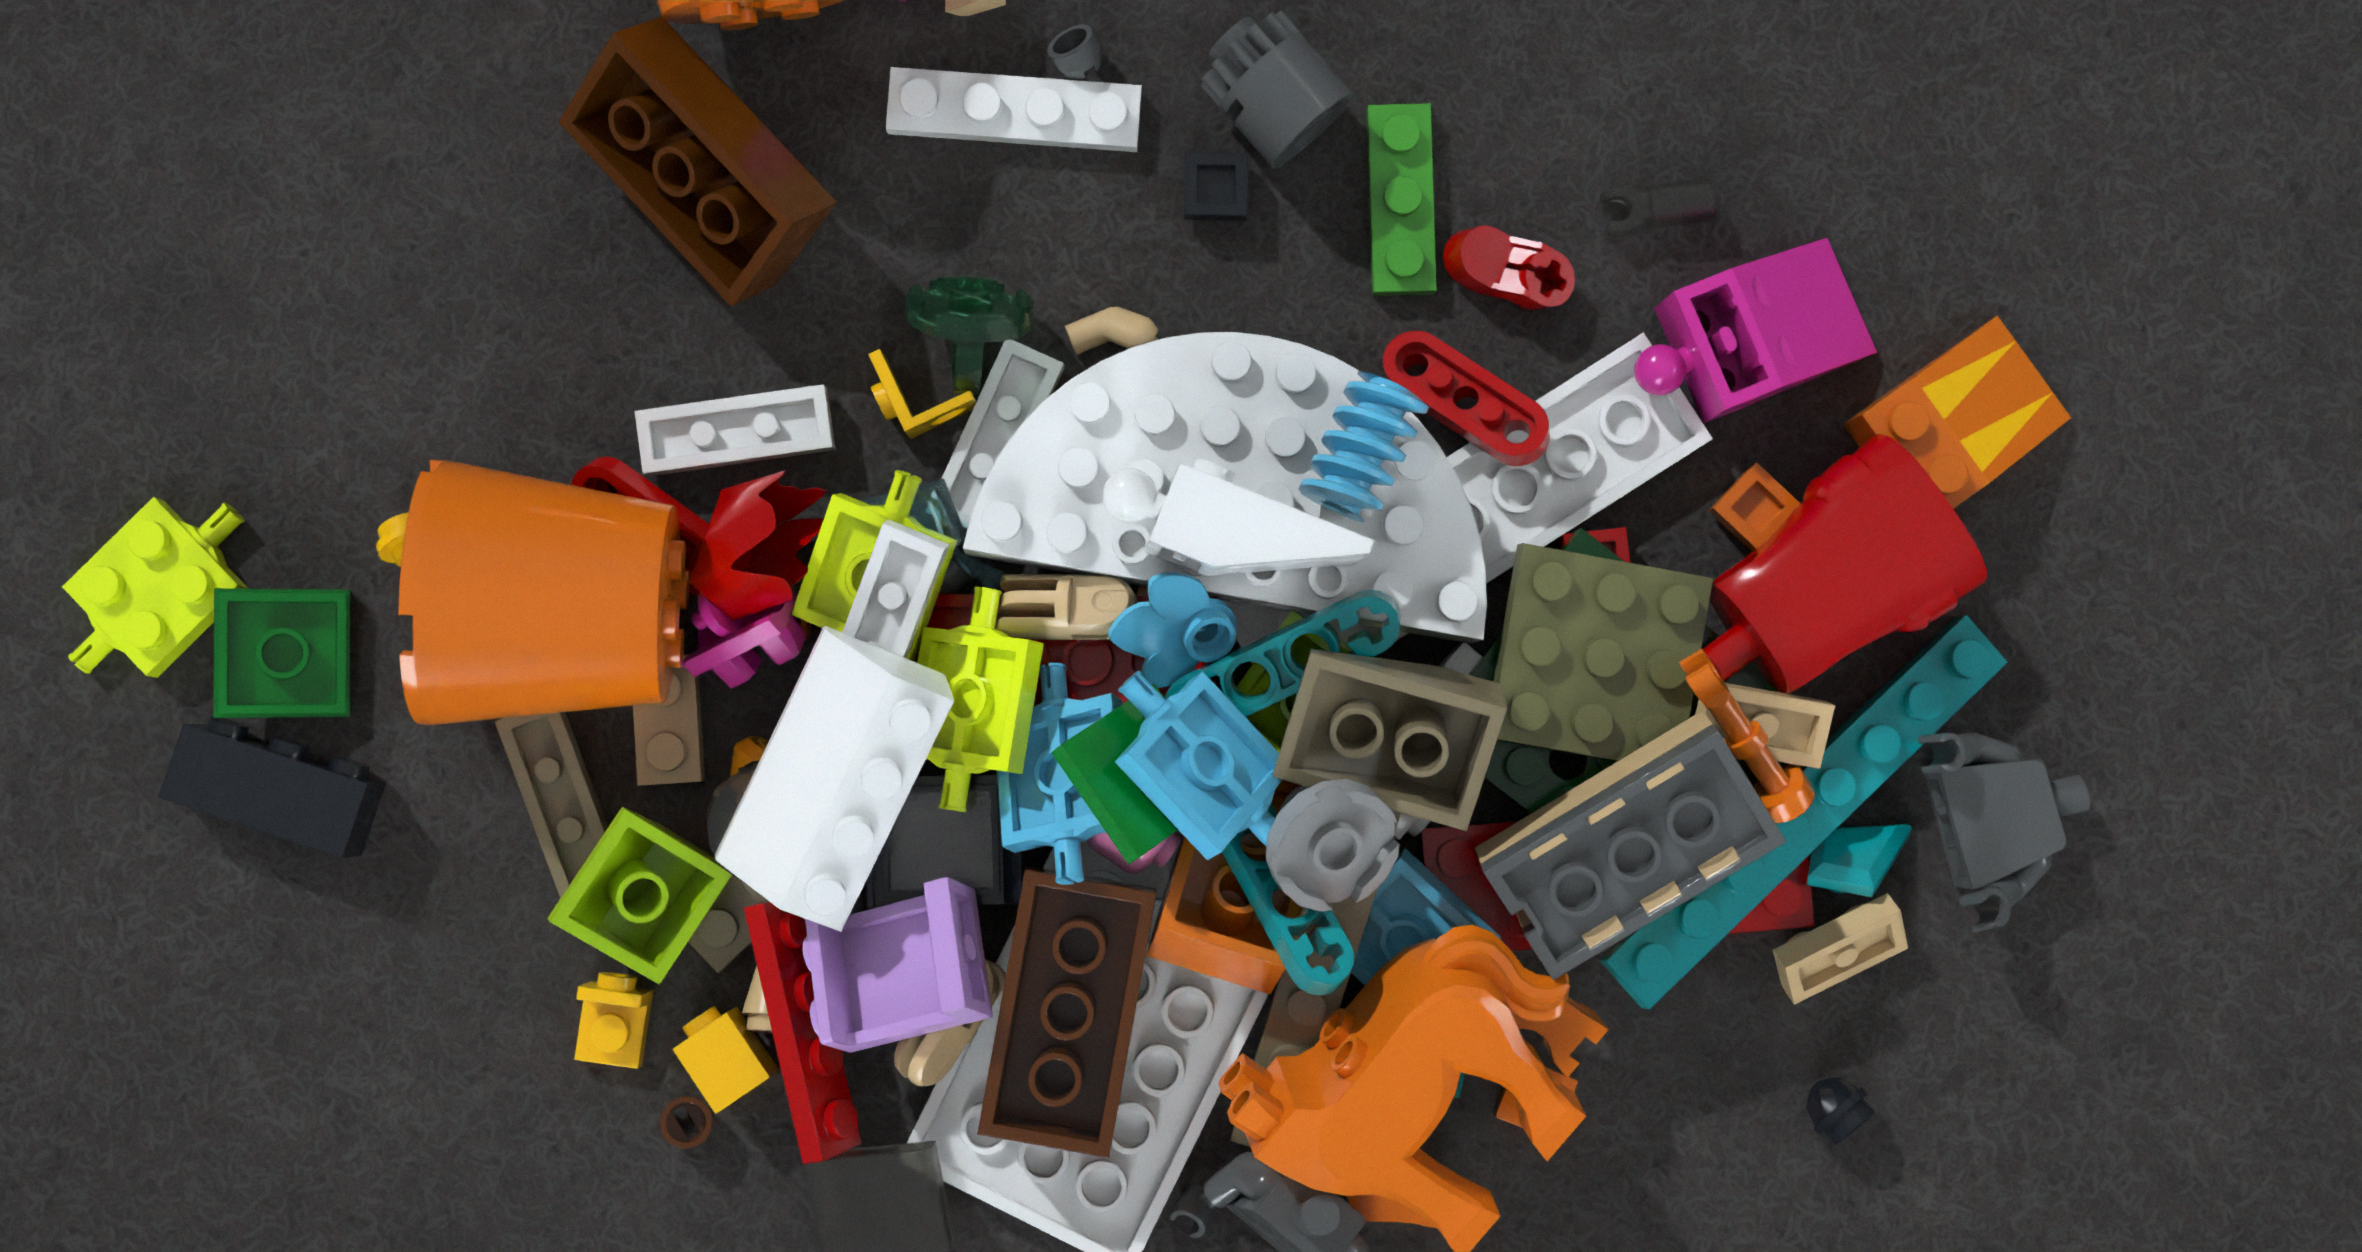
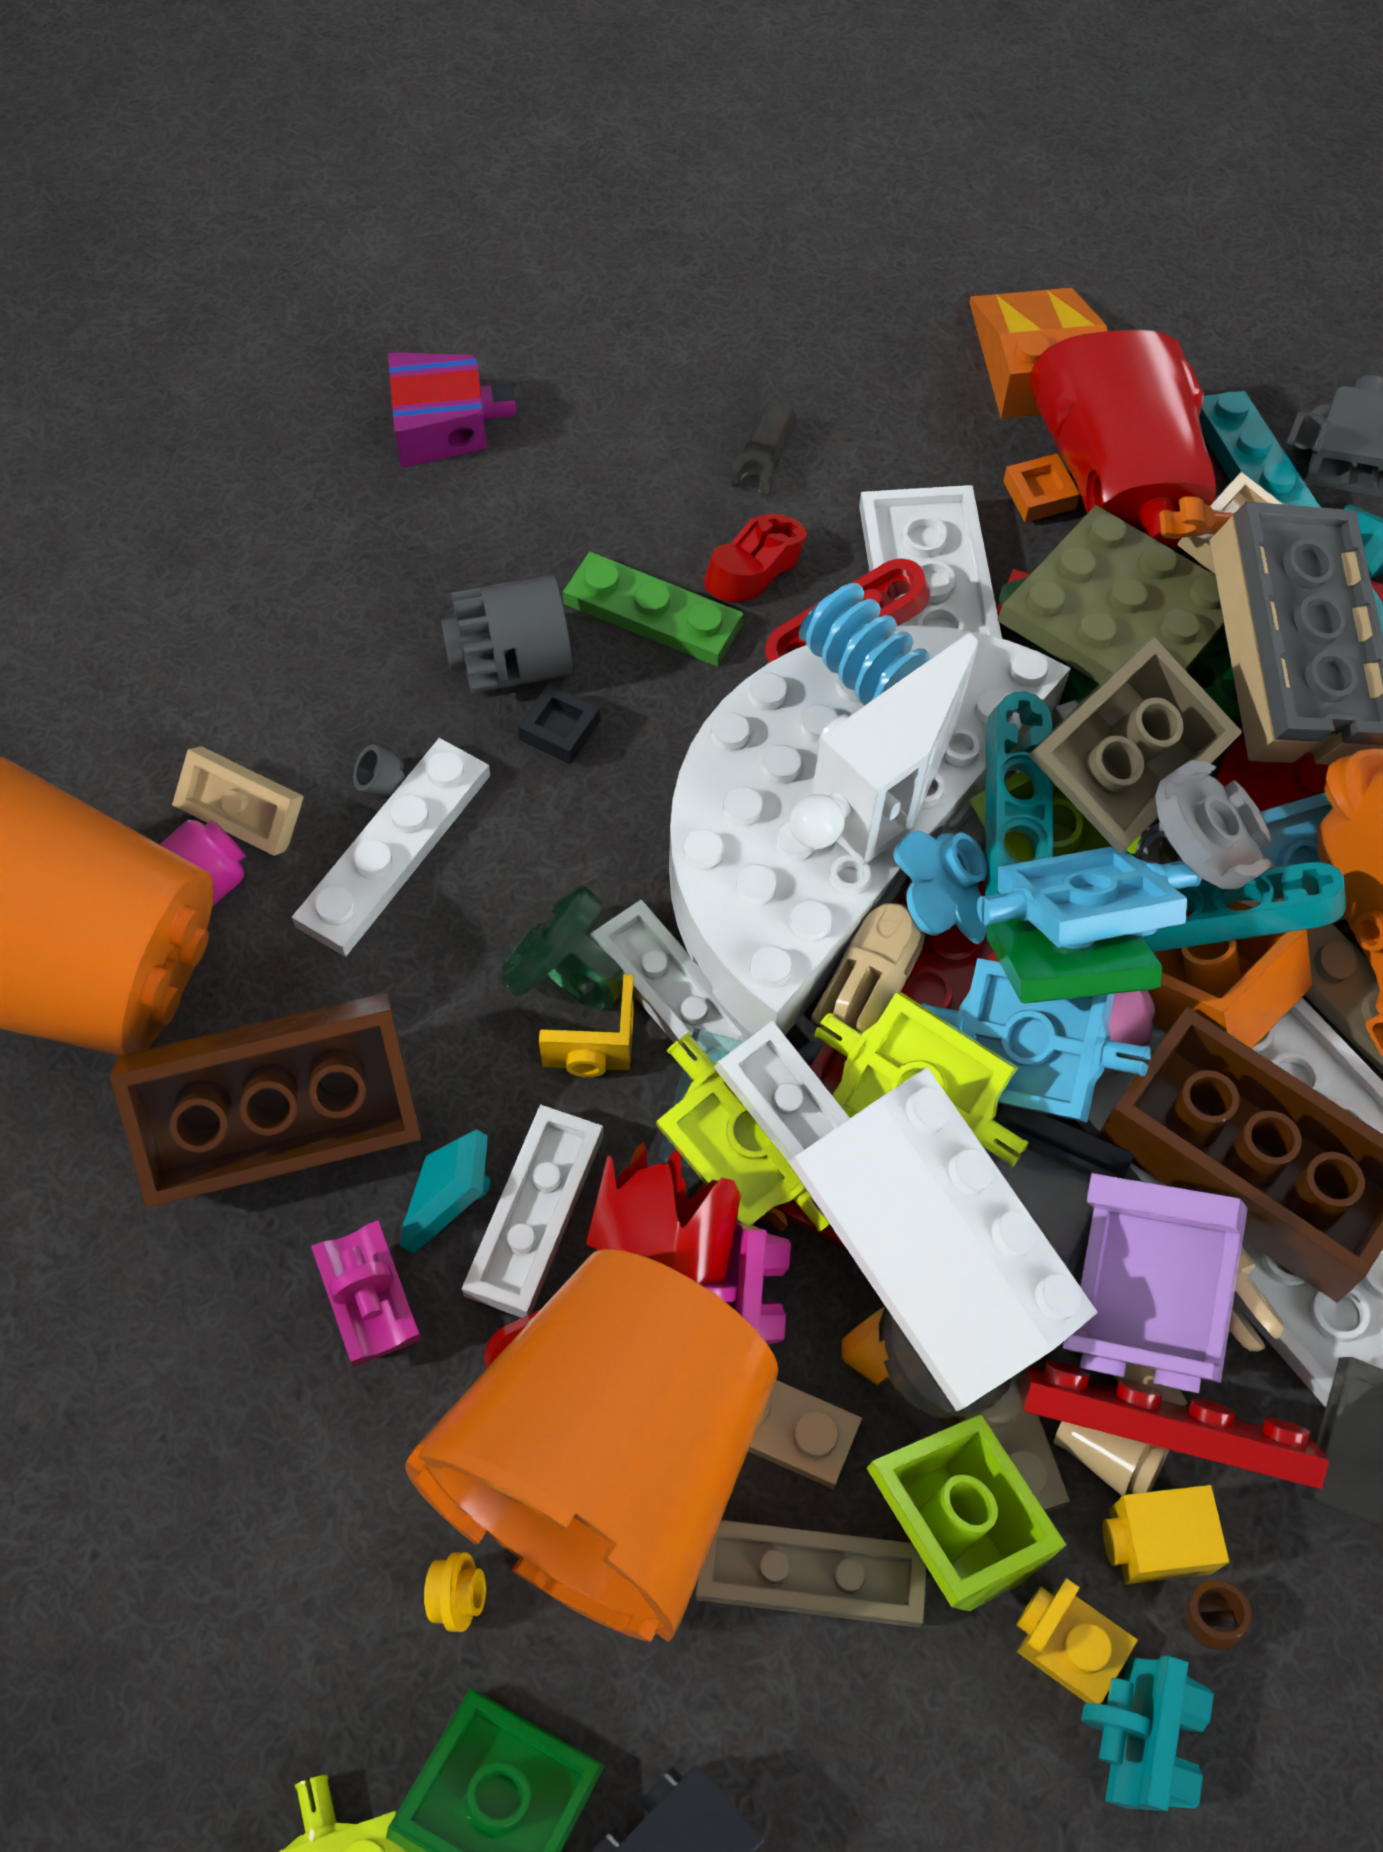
camera: 60 degrees left, 25 degrees down
(569, 1096) = (1143, 1734): none -> teal hips
(588, 338) = (366, 1294): none -> dark pink hips
(716, 348) = (445, 1188): none -> teal piece
(1111, 325) = (627, 854): tan arm -> none
(1764, 331) = (902, 432): dark pink slope -> none

